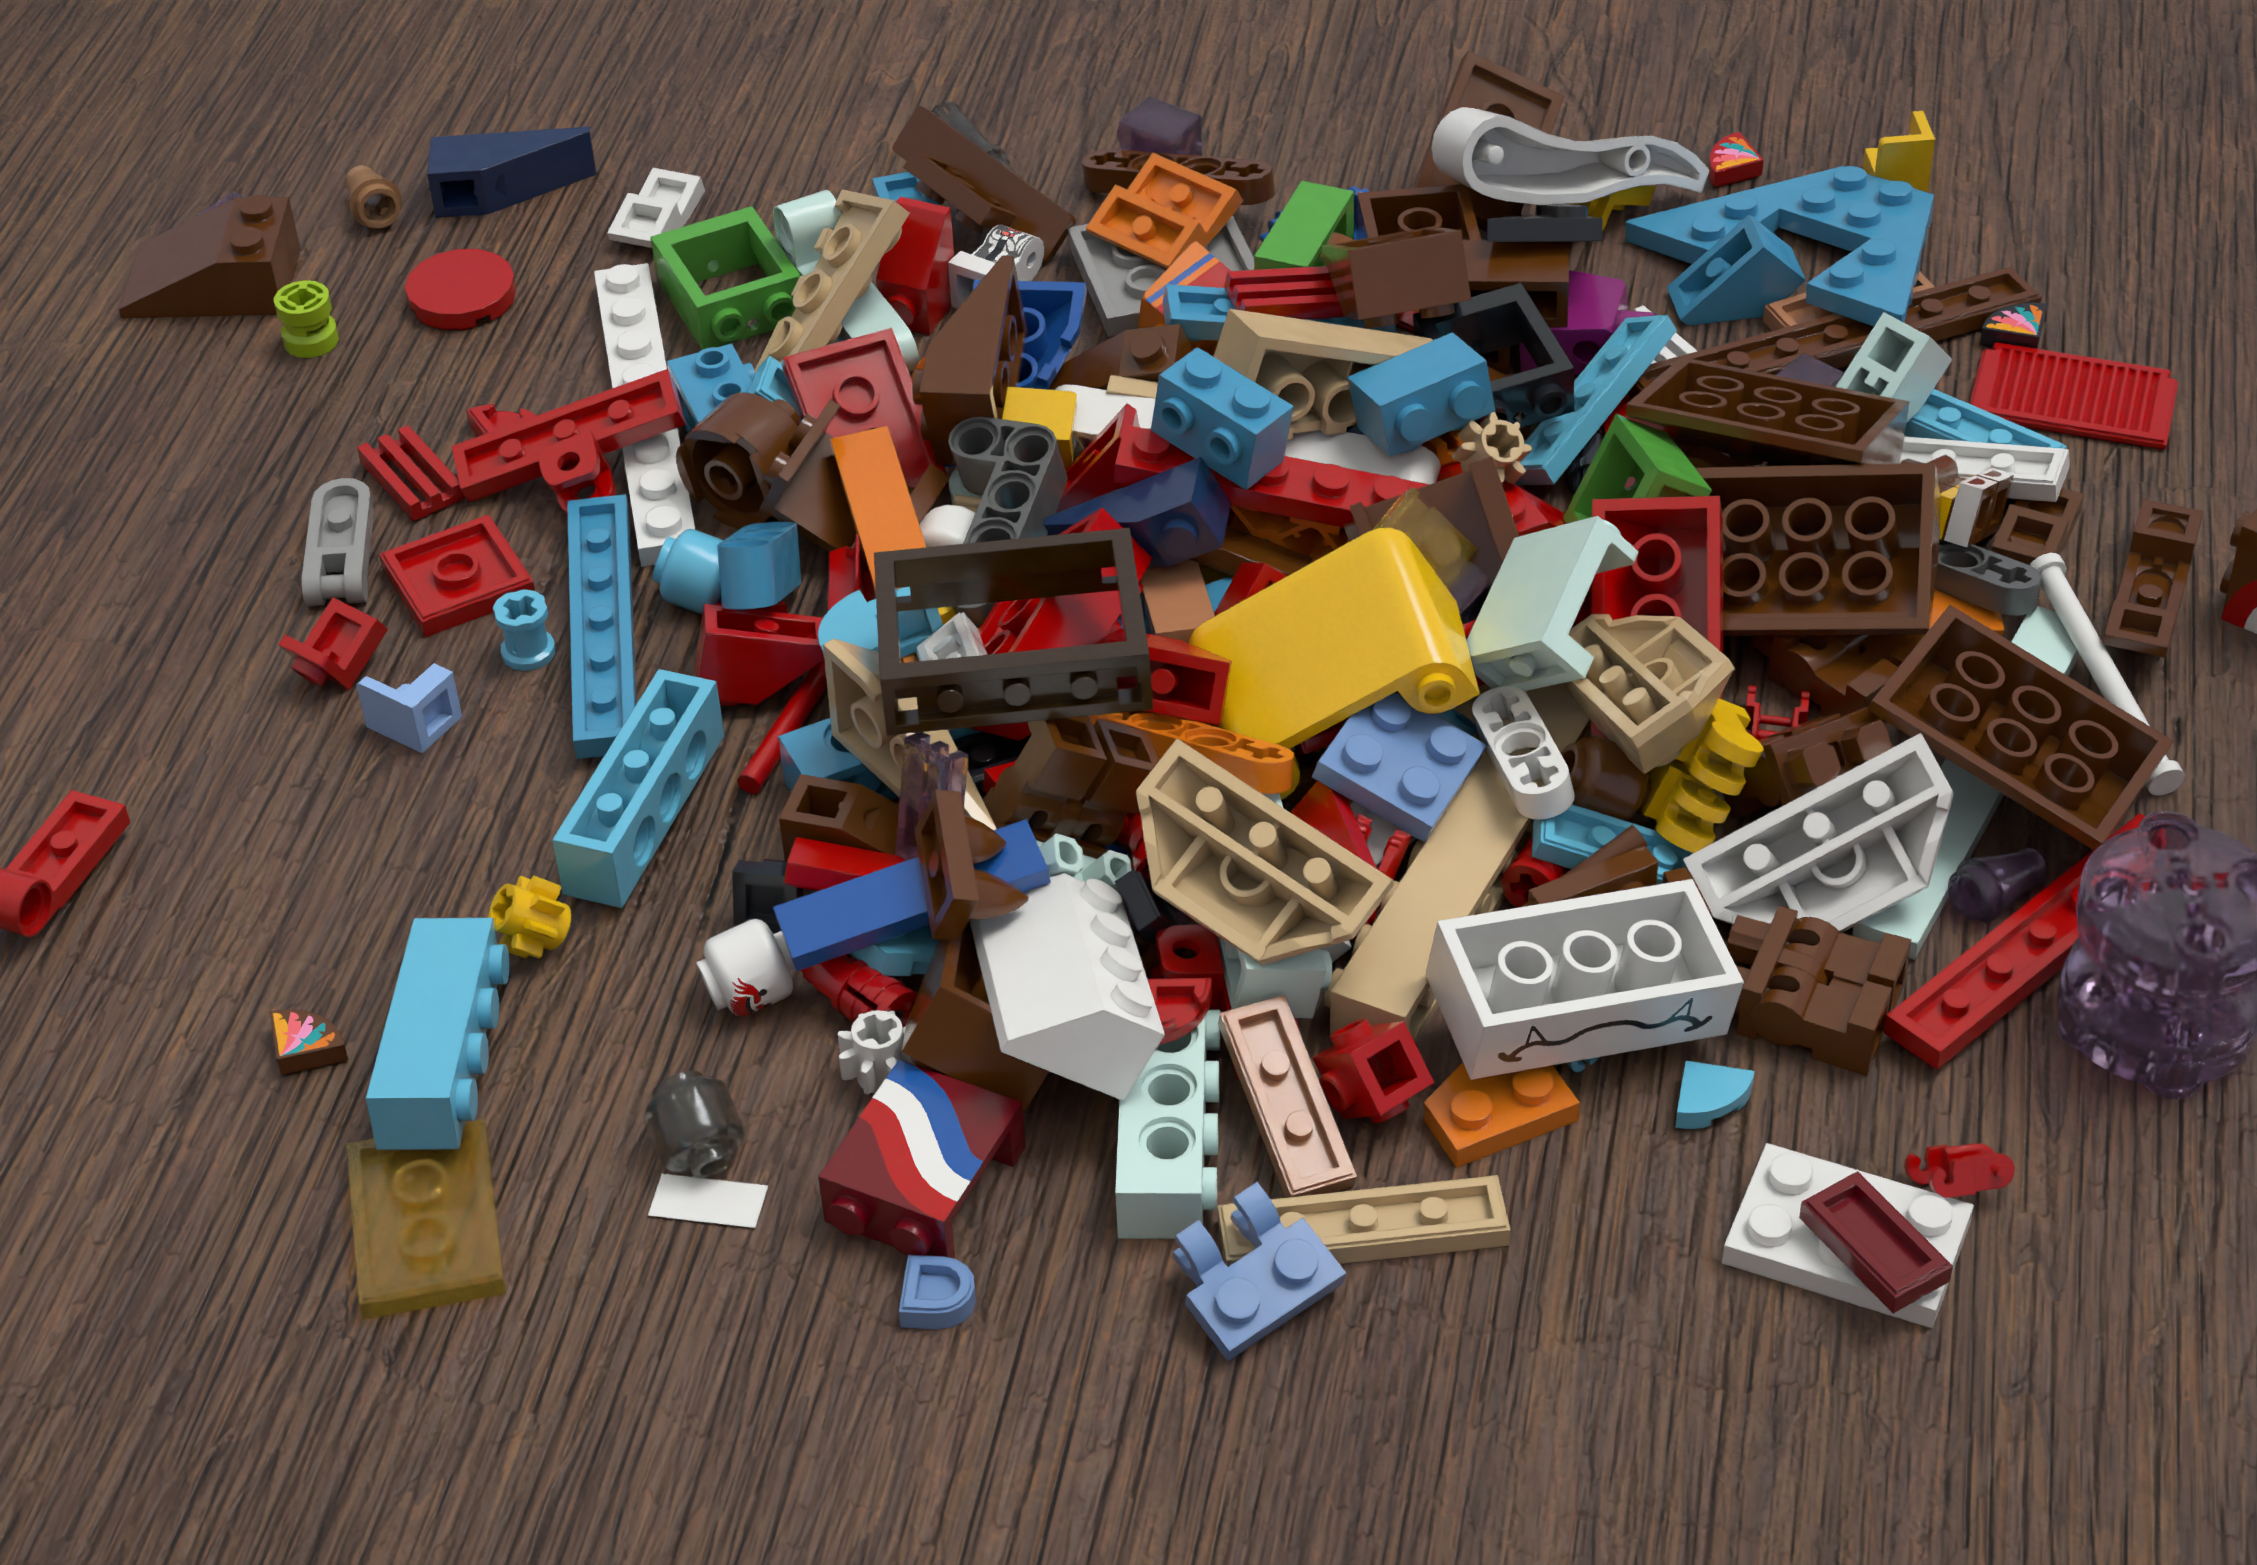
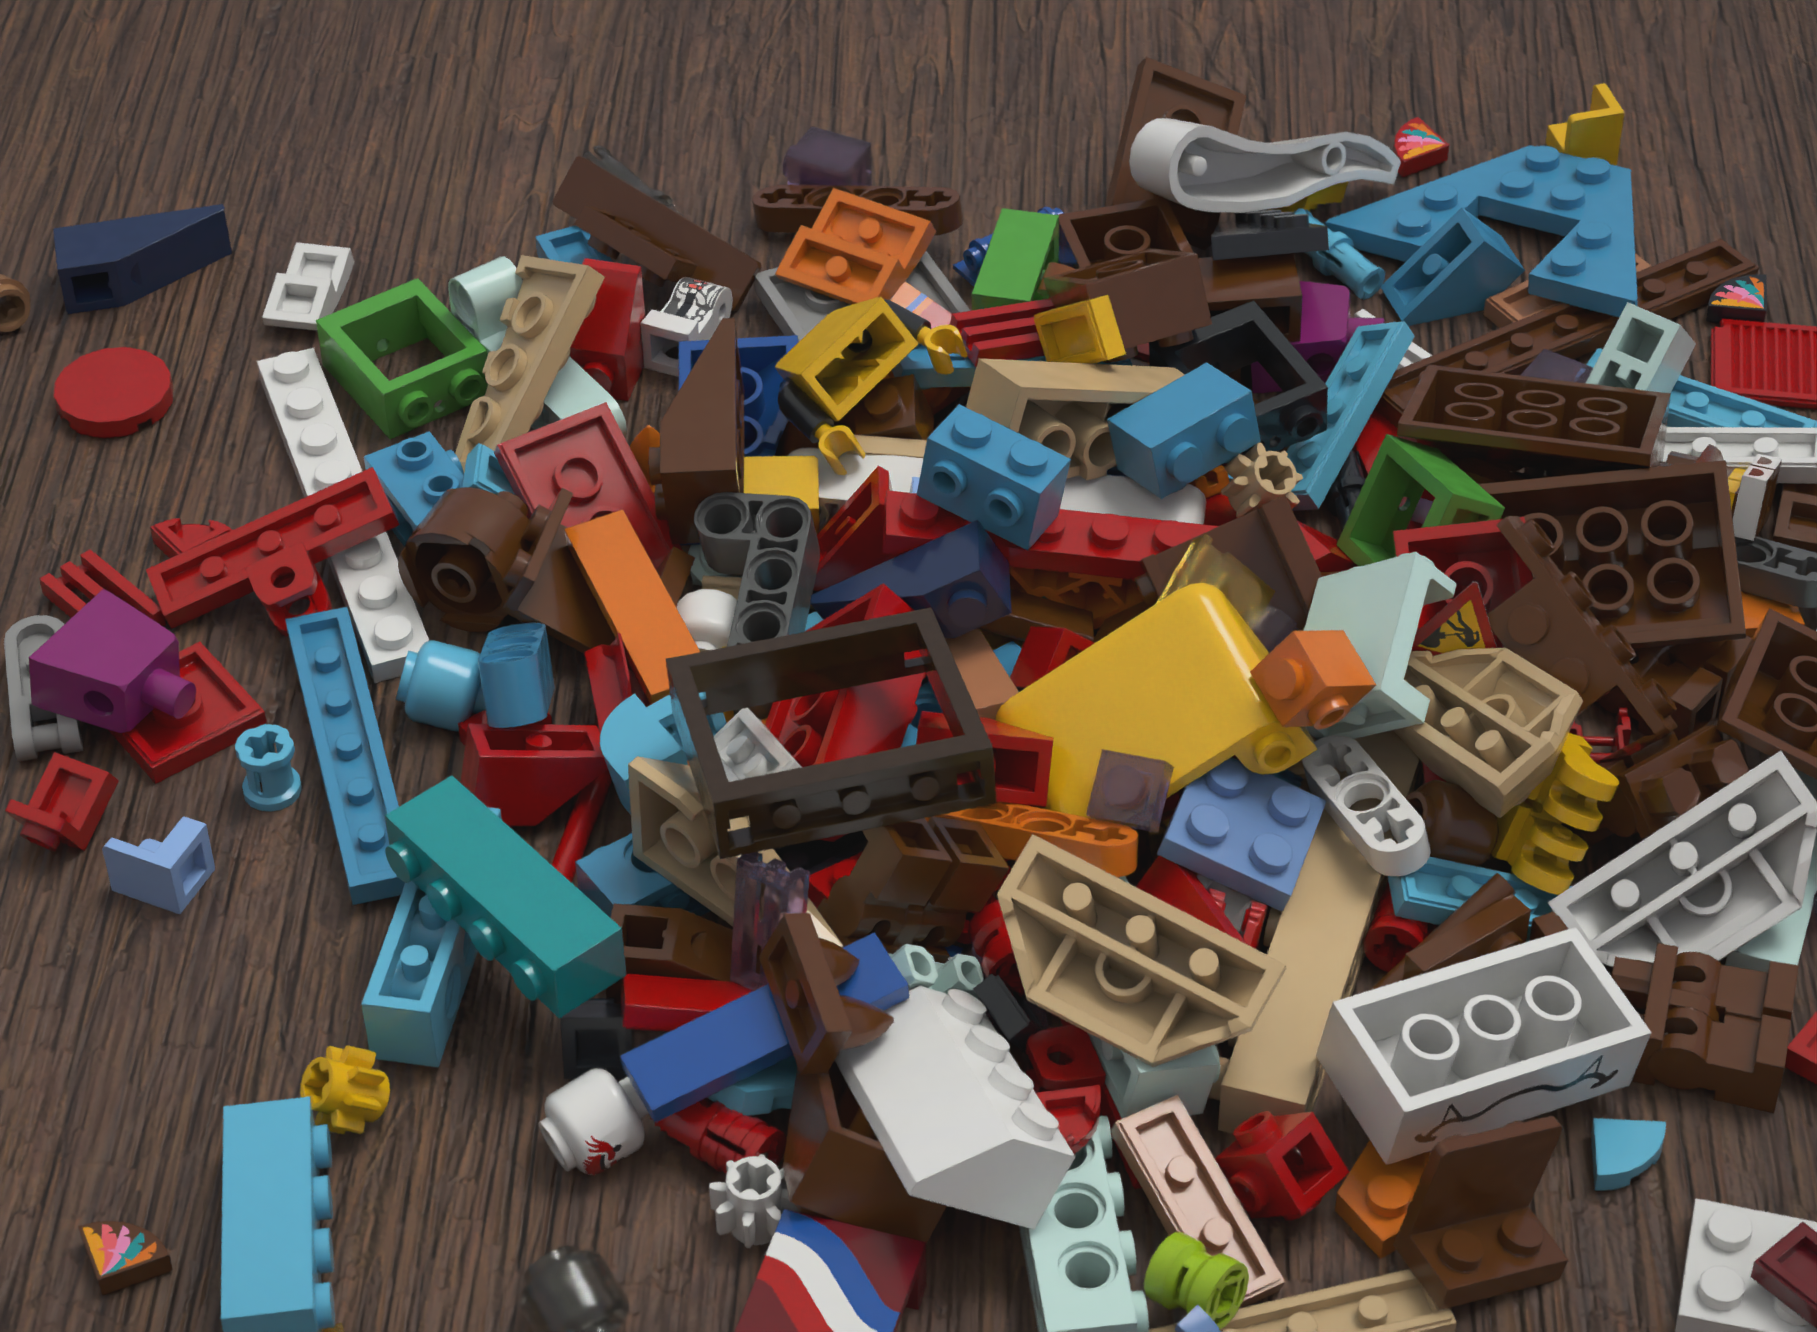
camera: 10 degrees left, 0 degrees up
(396, 527) = (110, 668): none -> magenta torso
(697, 756) = (505, 897): none -> teal brick
(1116, 306) = (846, 360): none -> yellow torso
(1258, 1154) = (1188, 1276): none -> lime wheel
(1295, 715) = (1130, 790): none -> plate
(1340, 295) = (1080, 332): none -> yellow tile
(1478, 624) = (1313, 678): none -> orange brick
(1545, 1128) = (1472, 1219): none -> reddish brown bracket
(1628, 254) = (1346, 263): none -> medium azure pin
(1635, 593) = (1457, 626): none -> sticker
(1738, 614) = (1557, 632): none -> reddish brown bracket

